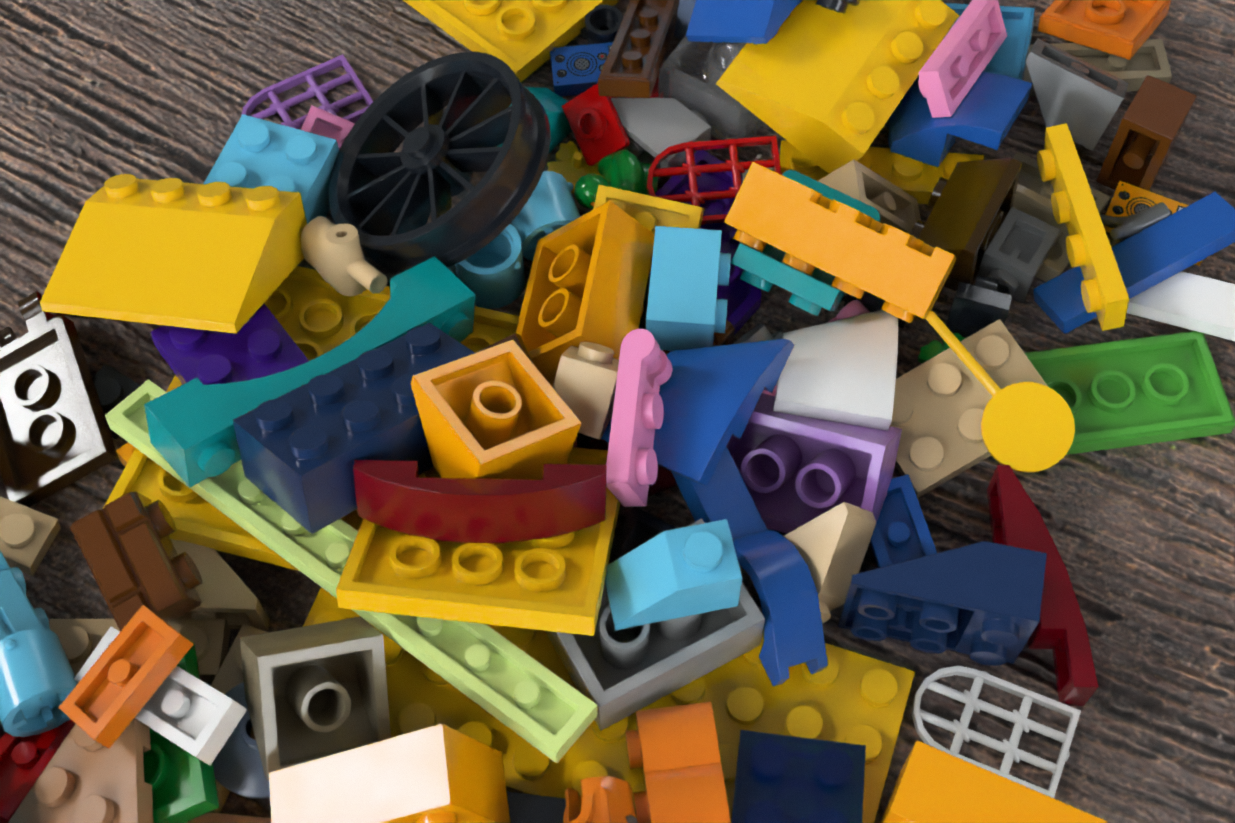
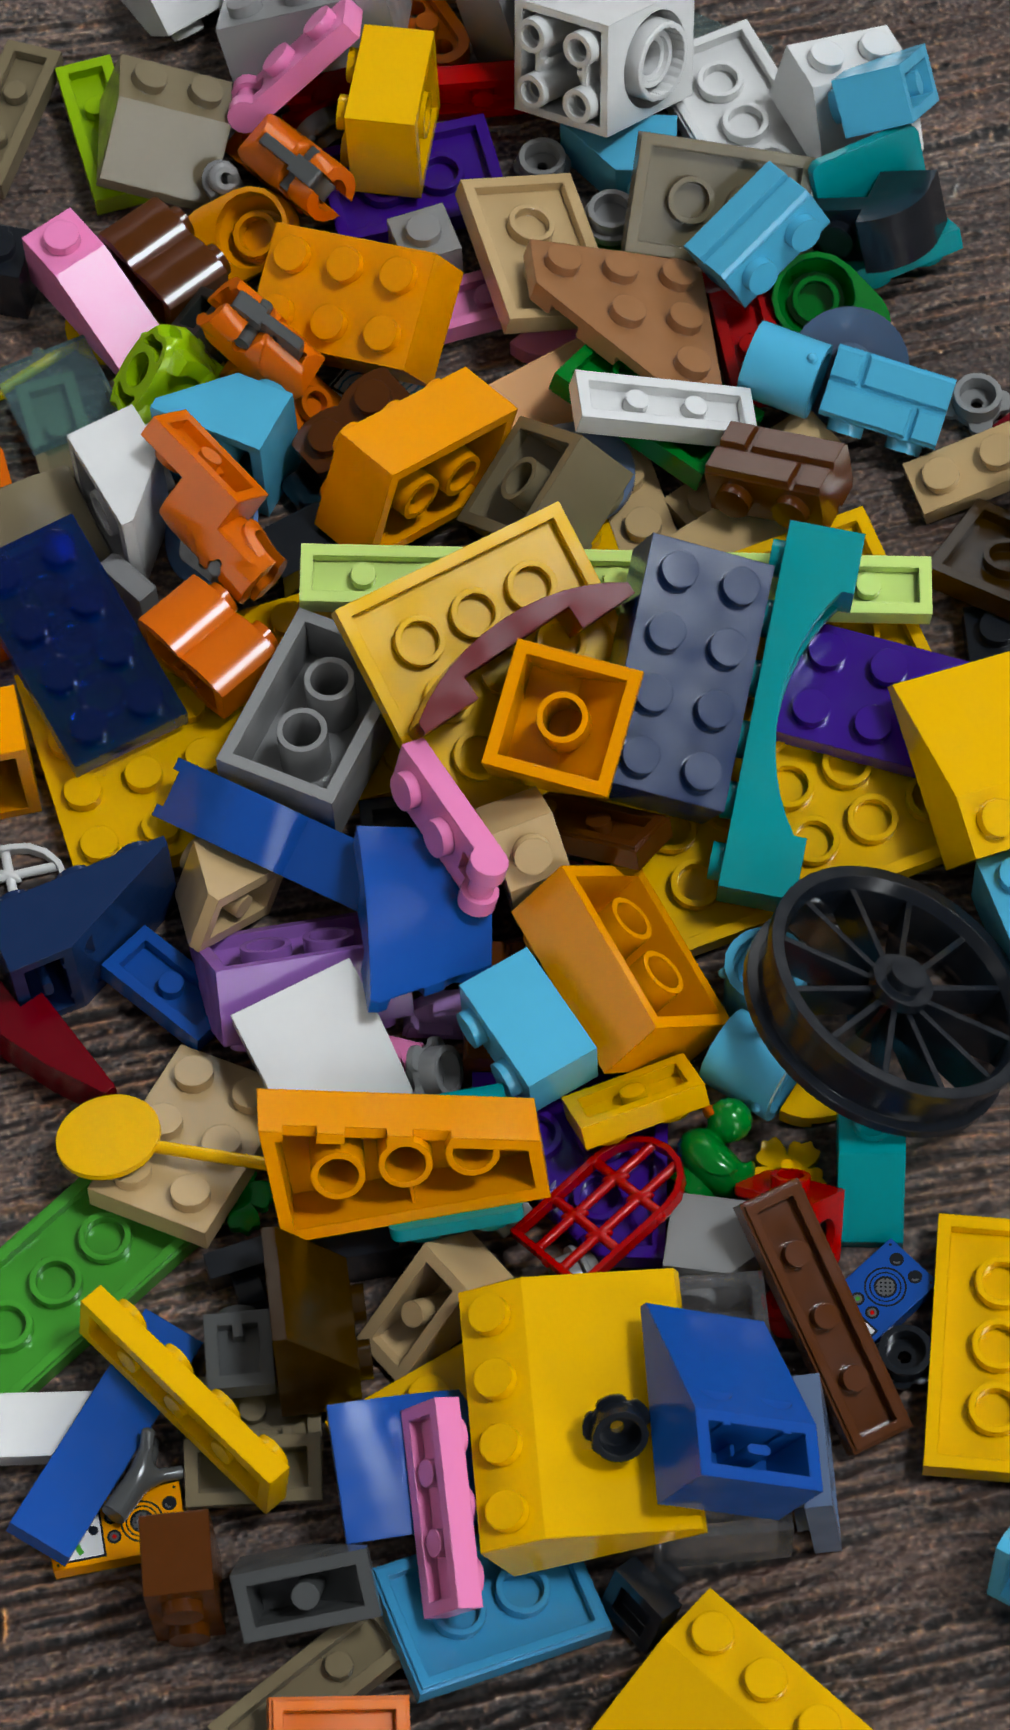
camera: 145 degrees right, 0 degrees up
(125, 676) = (688, 385): orange plate -> none
(339, 257) = (893, 851): tan piece -> none
(675, 576) = (303, 720): medium azure slope -> none

